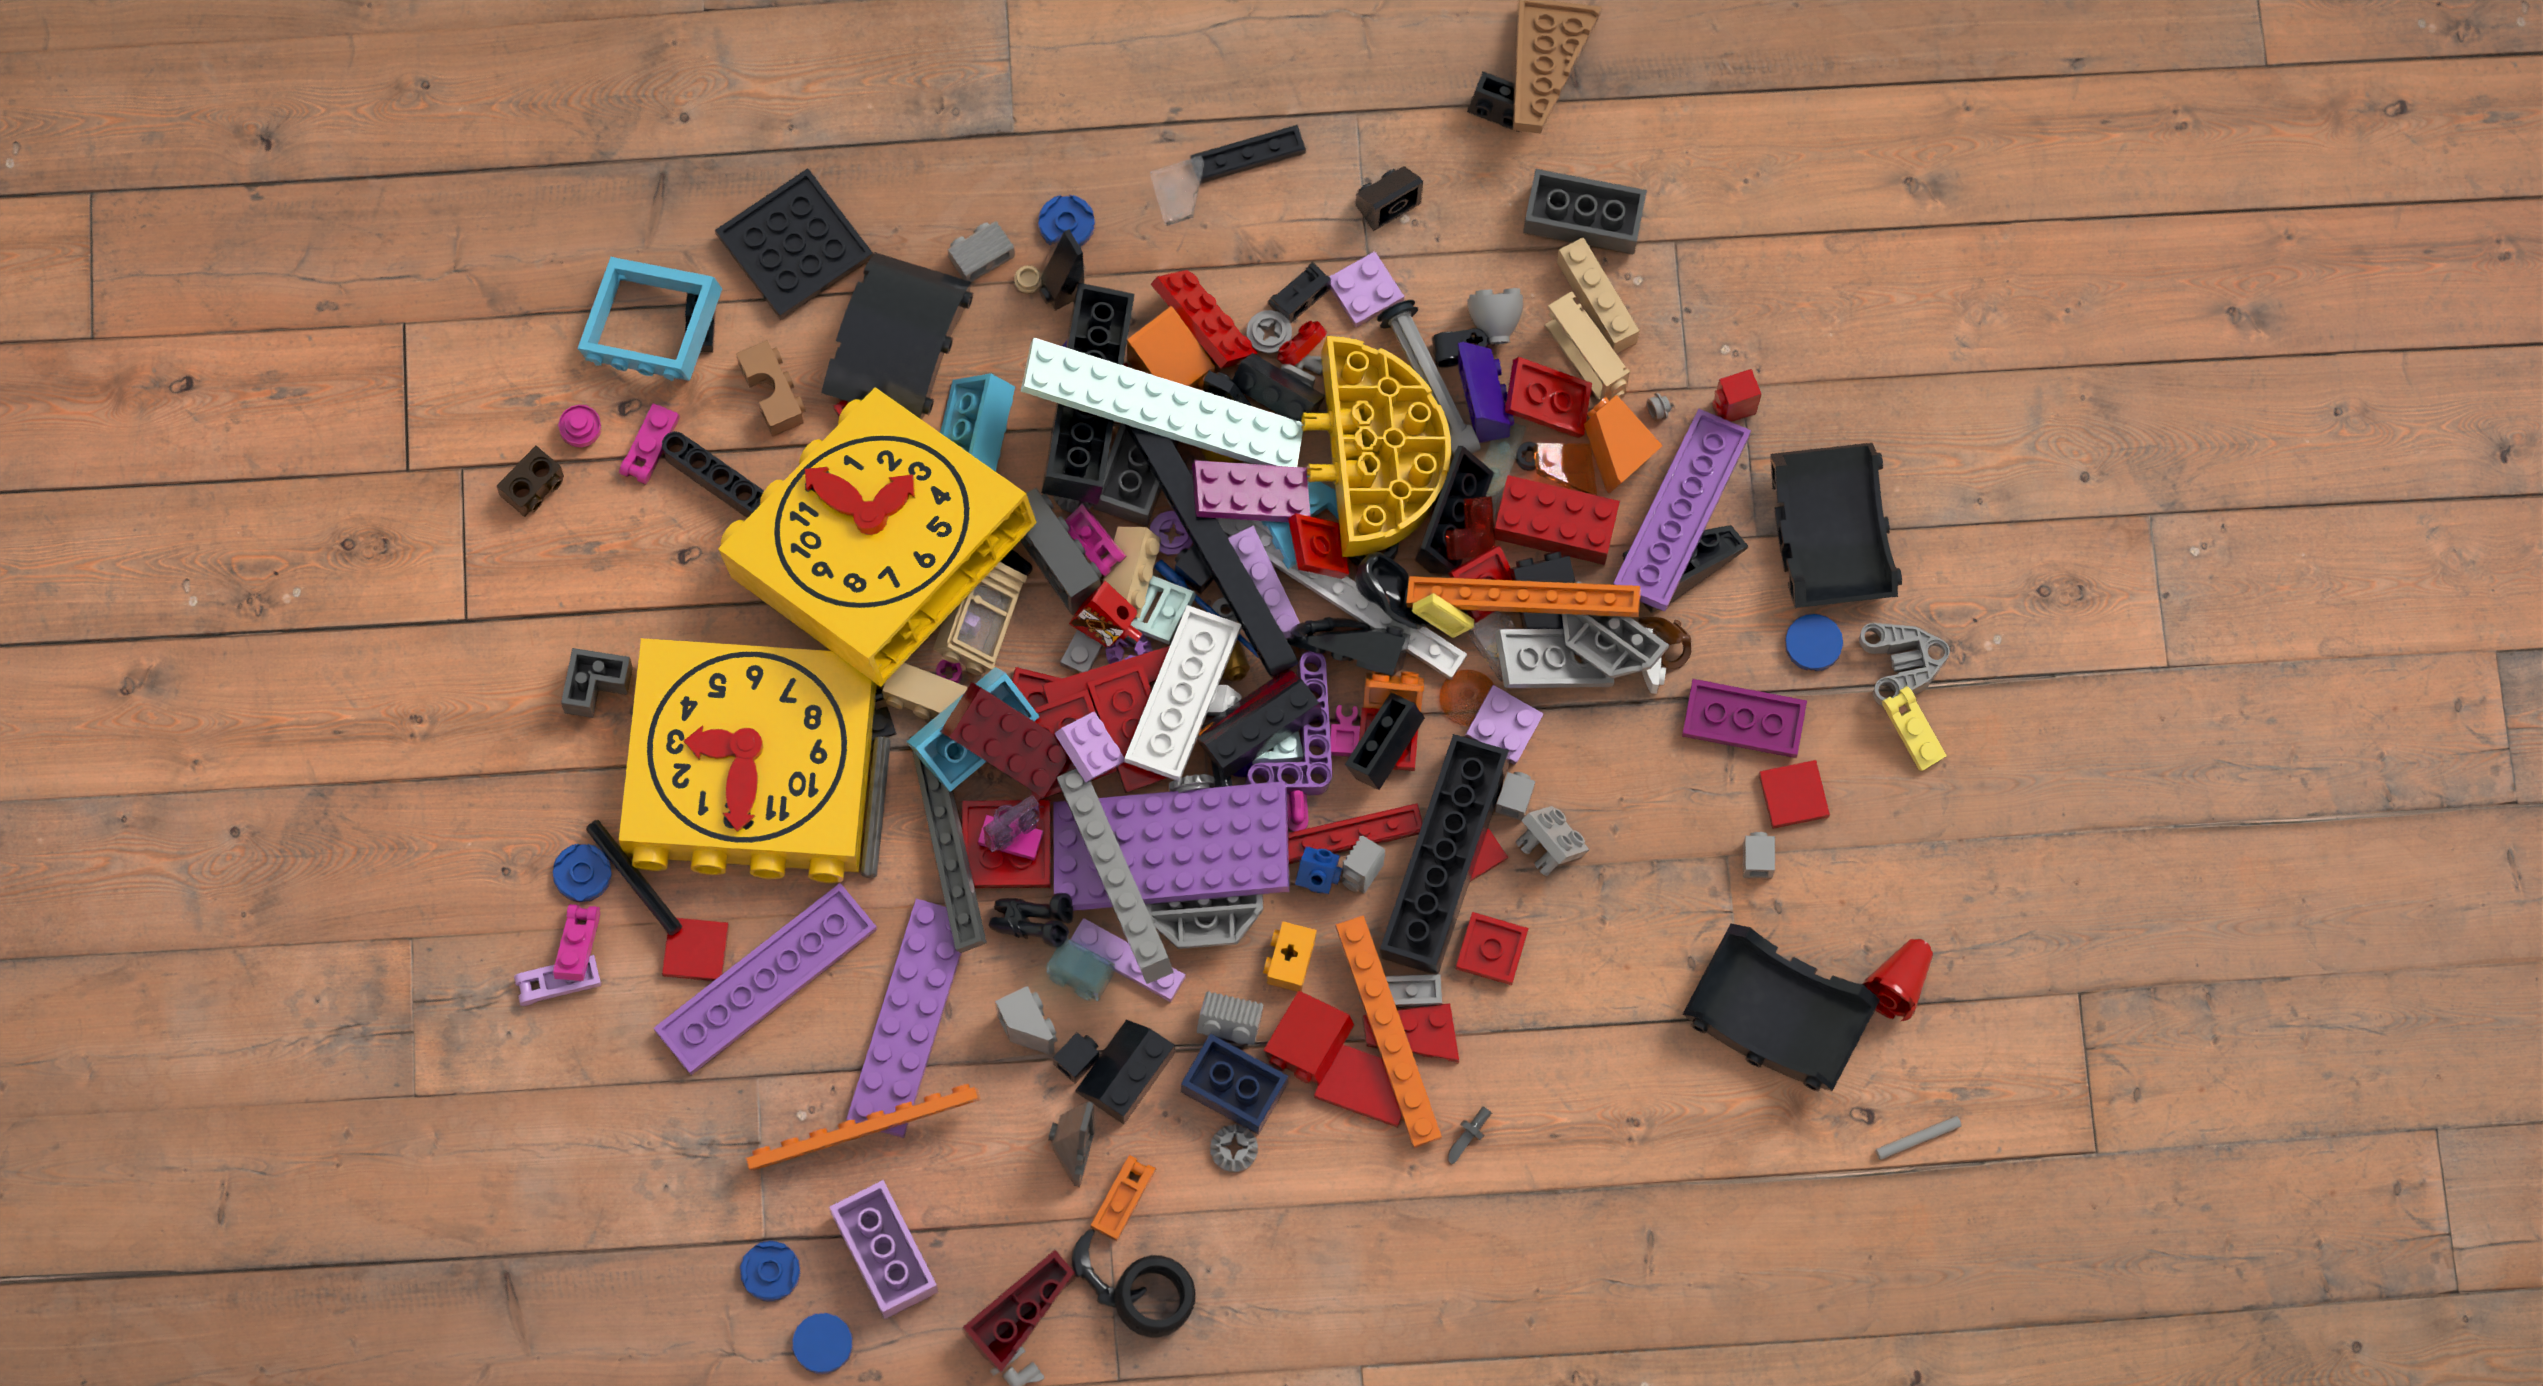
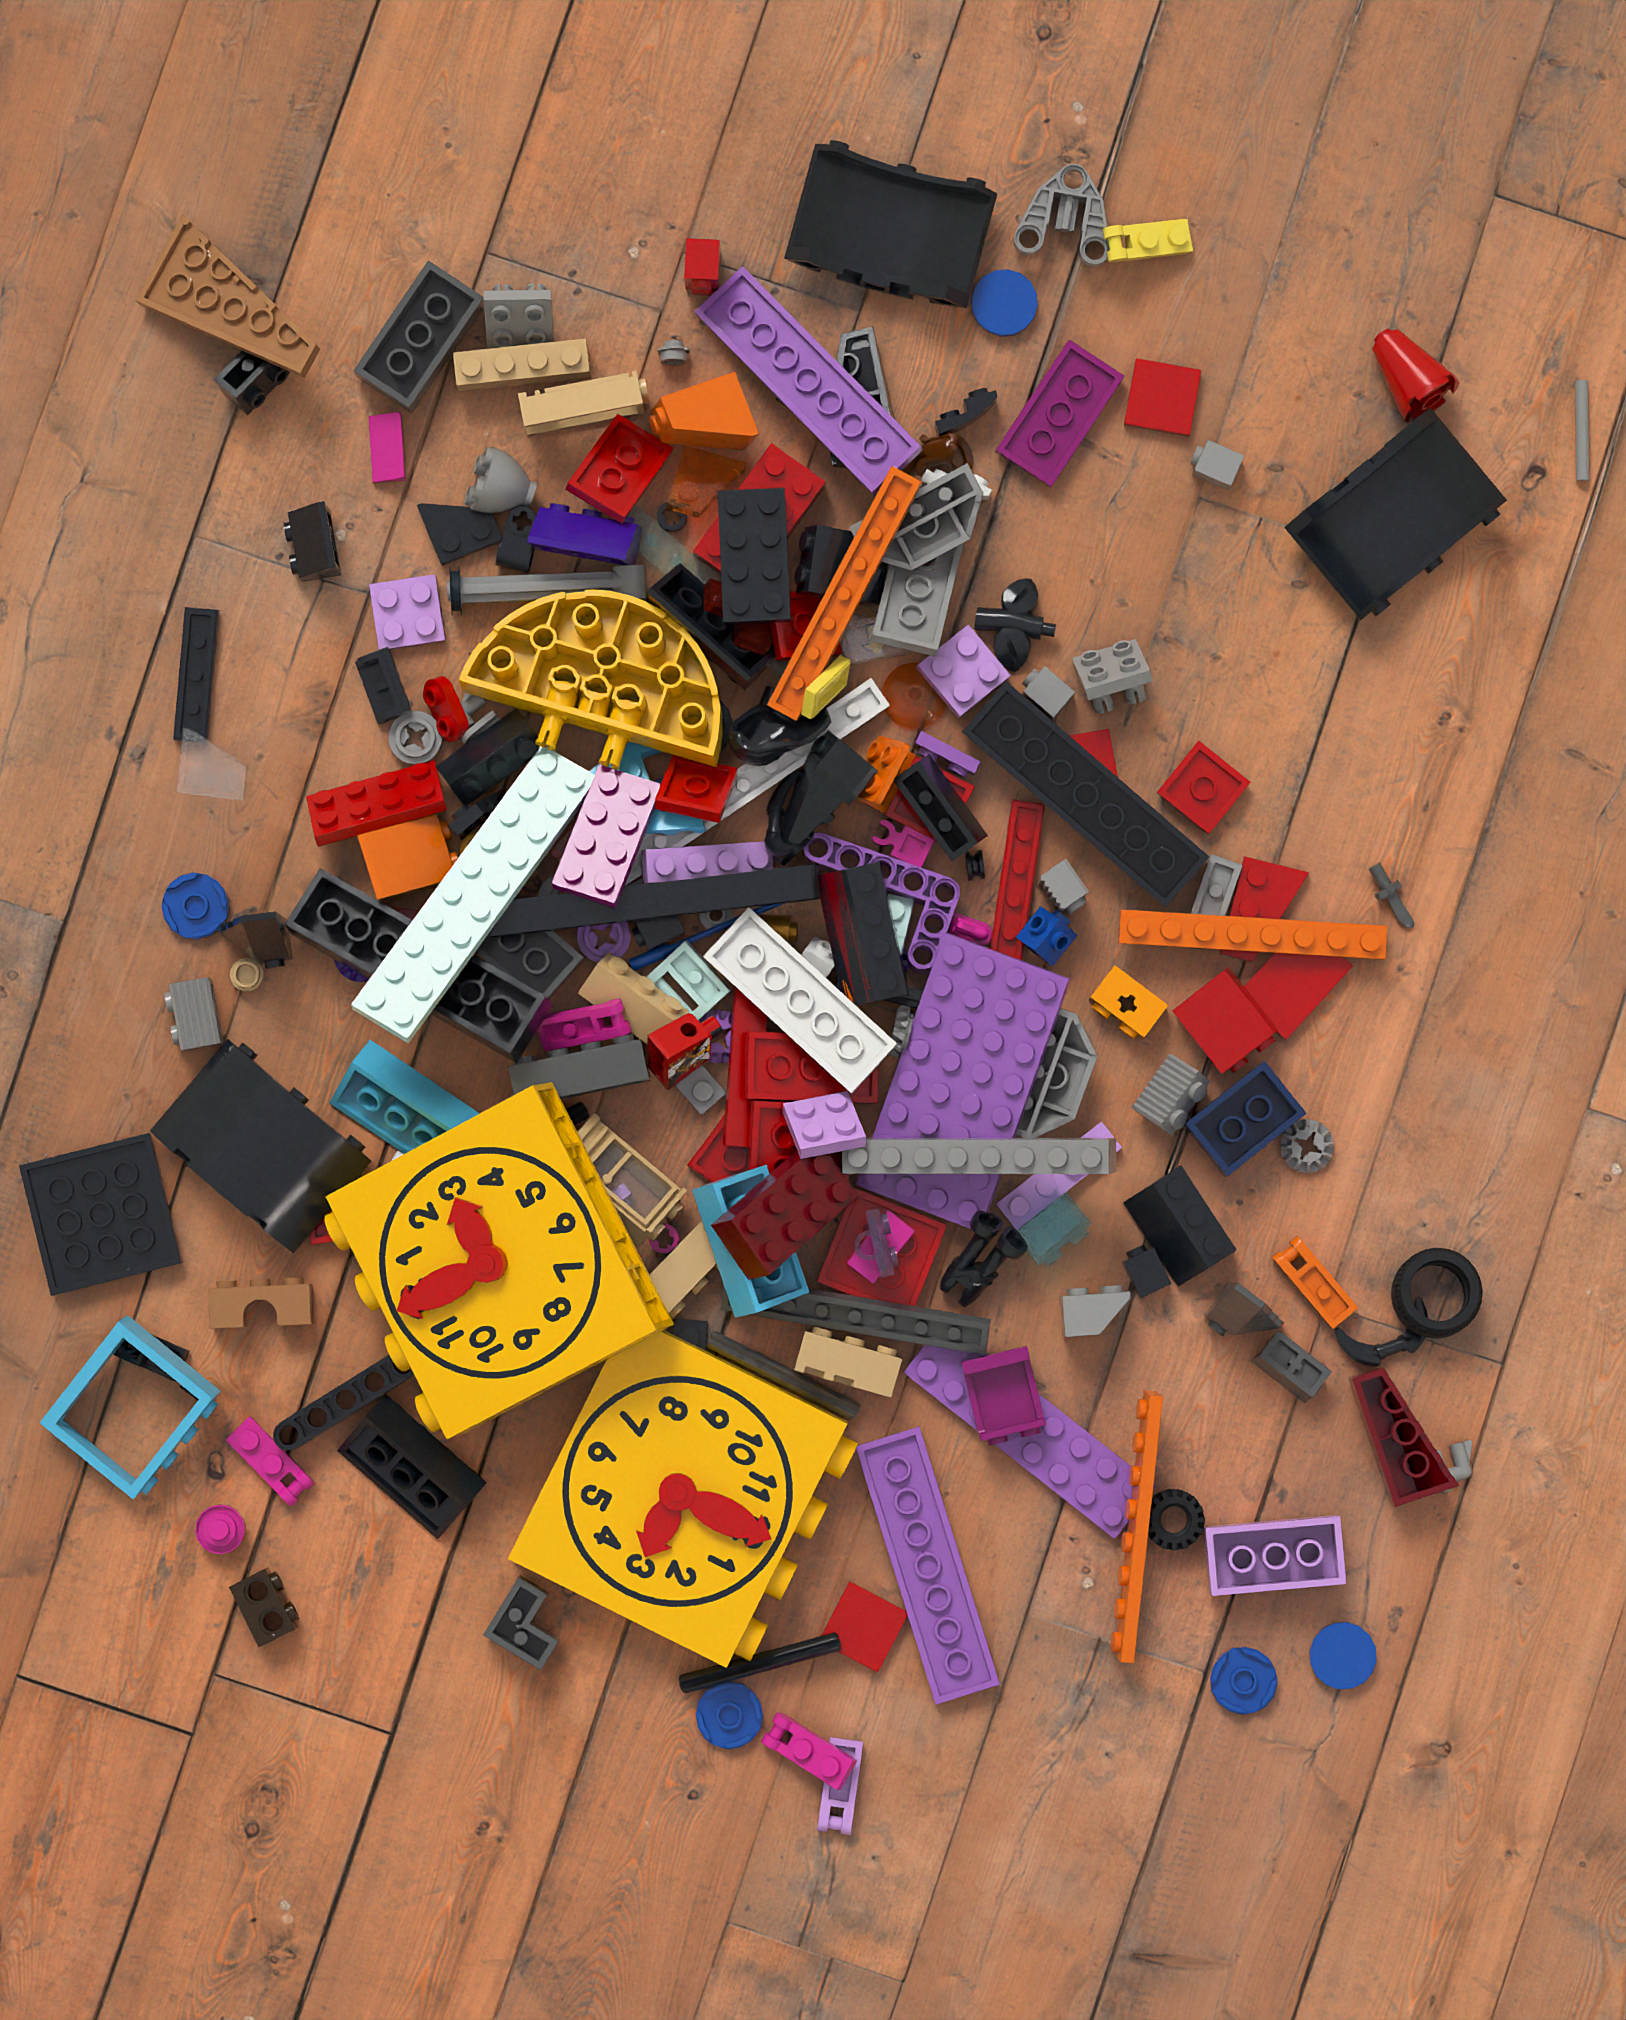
camera: 65 degrees left, 15 degrees up
(687, 549) = (411, 1466): none -> black slope
(881, 1142) = (1194, 1524): none -> black tyre
(906, 848) = (848, 1362): none -> tan wedge
(929, 979) = (1003, 1395): none -> magenta panel
(1046, 1204) = (1291, 1366): none -> dark grey hinge
(1351, 793) = (974, 865): none -> black bush
(1428, 749) = (958, 761): none -> medium lavender plate
(1446, 301) = (458, 530): none -> black wing
(1488, 225) = (387, 447): none -> dark pink slope
(1522, 517) = (754, 556): none -> black plate
(1559, 749) = (1014, 623): none -> black plant
(1635, 276) = (518, 316): none -> light grey plate
(1719, 650) = (975, 407): none -> black slope

